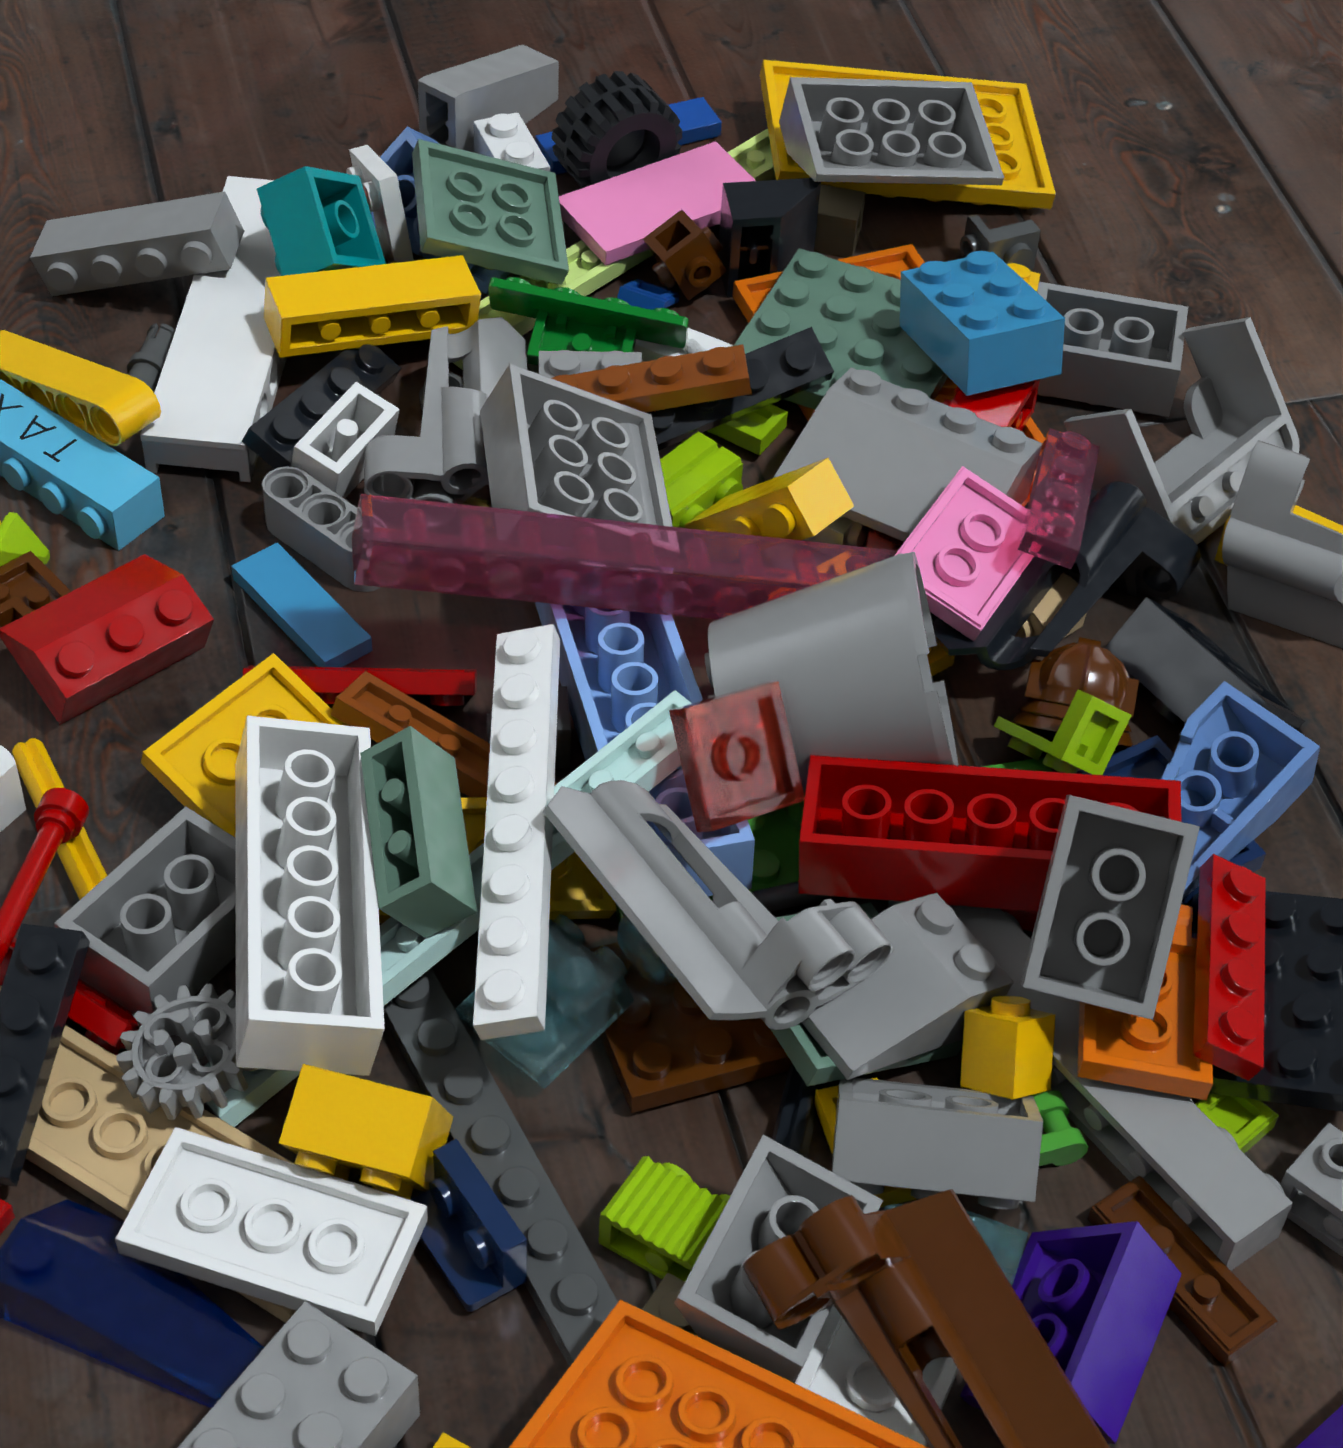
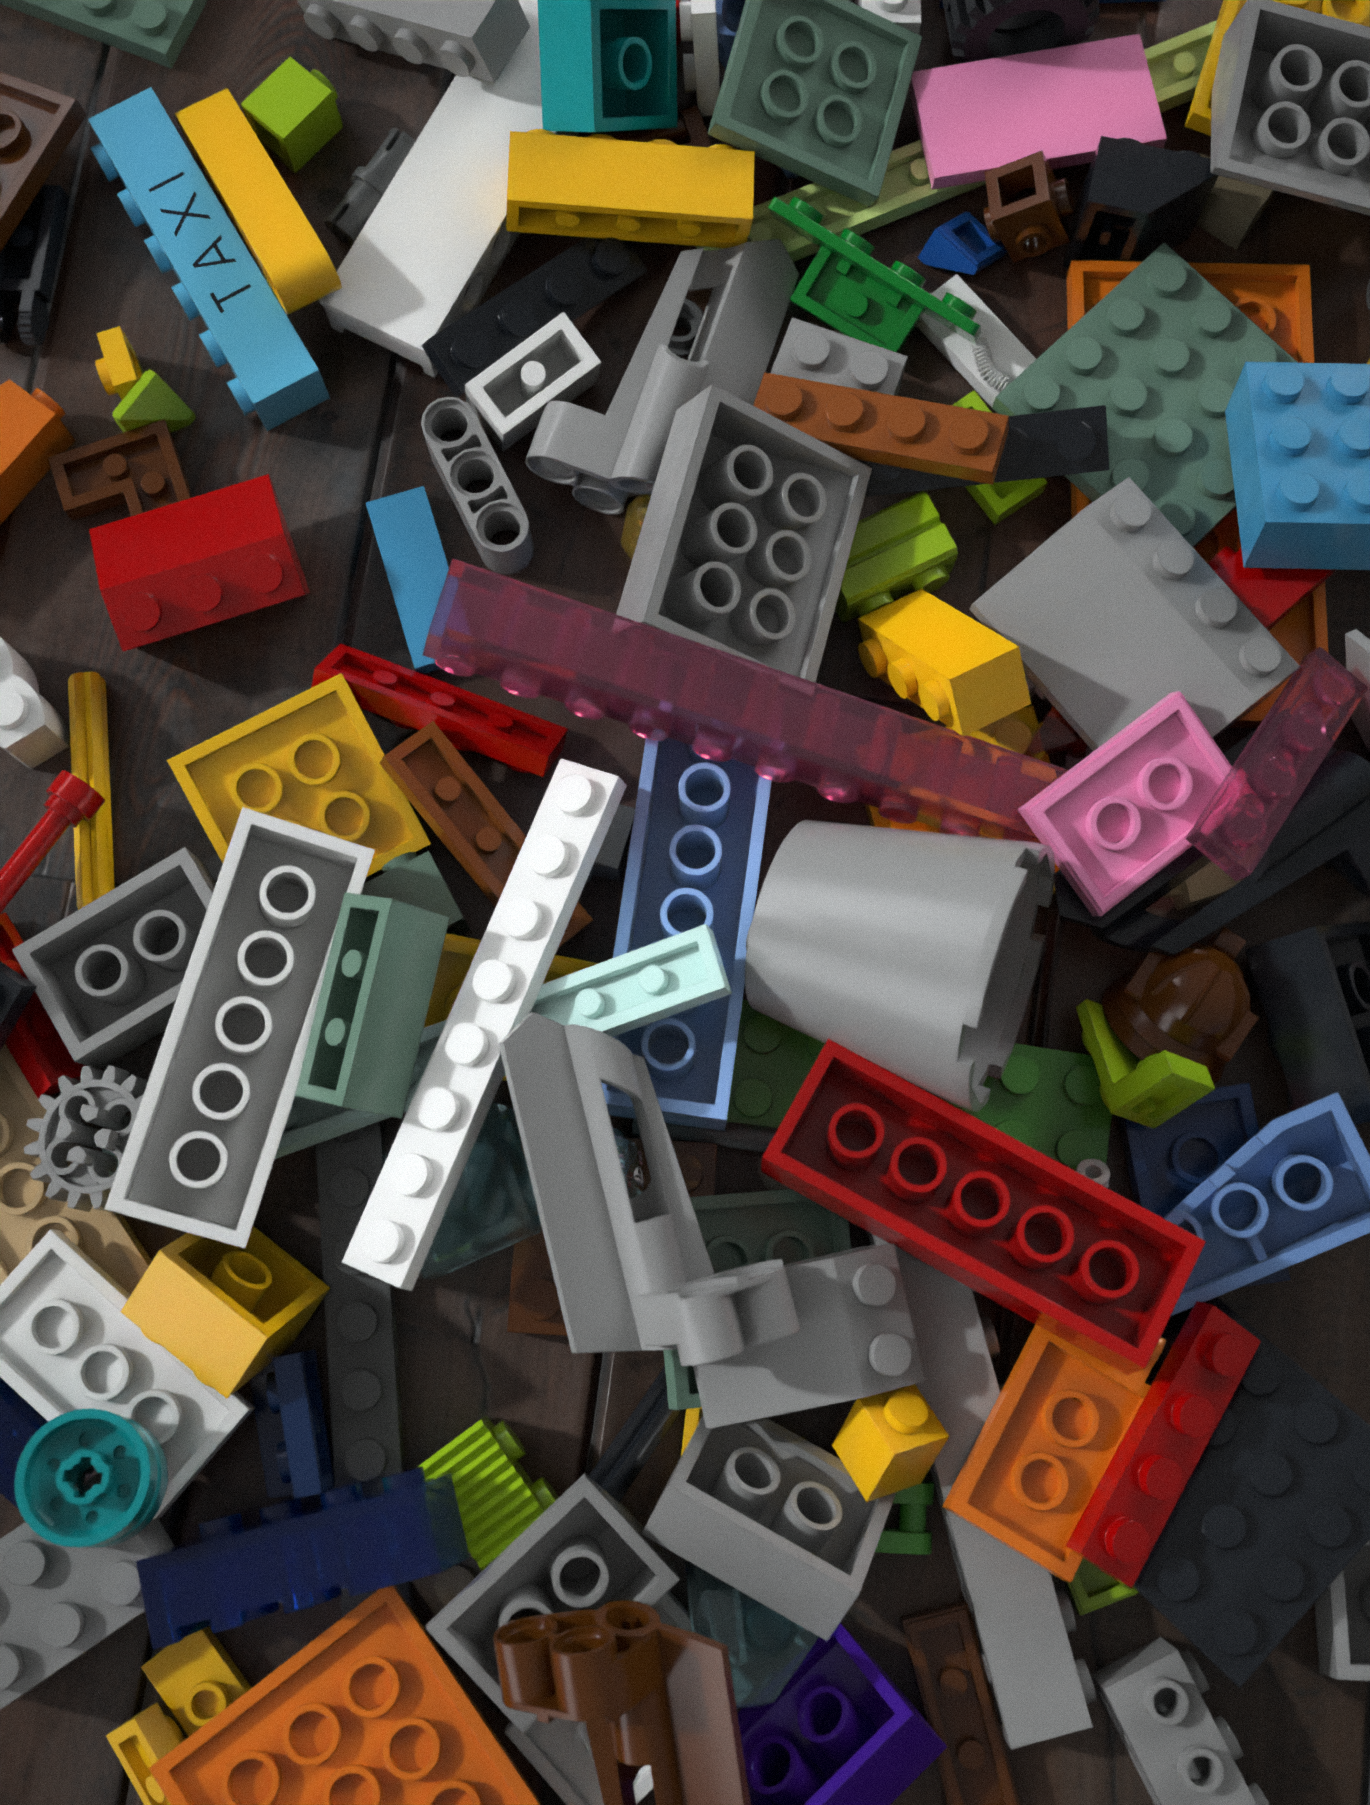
camera: 25 degrees right, 30 degrees up
(64, 327) = (293, 113): none -> lime brick
(311, 1272) = (54, 1470): none -> teal wheel
(533, 1299) = (303, 1555): none -> clear blue wedge
(737, 756) = (734, 1037): clear red plate -> none
(1109, 906) = (1042, 1392): light grey brick -> none

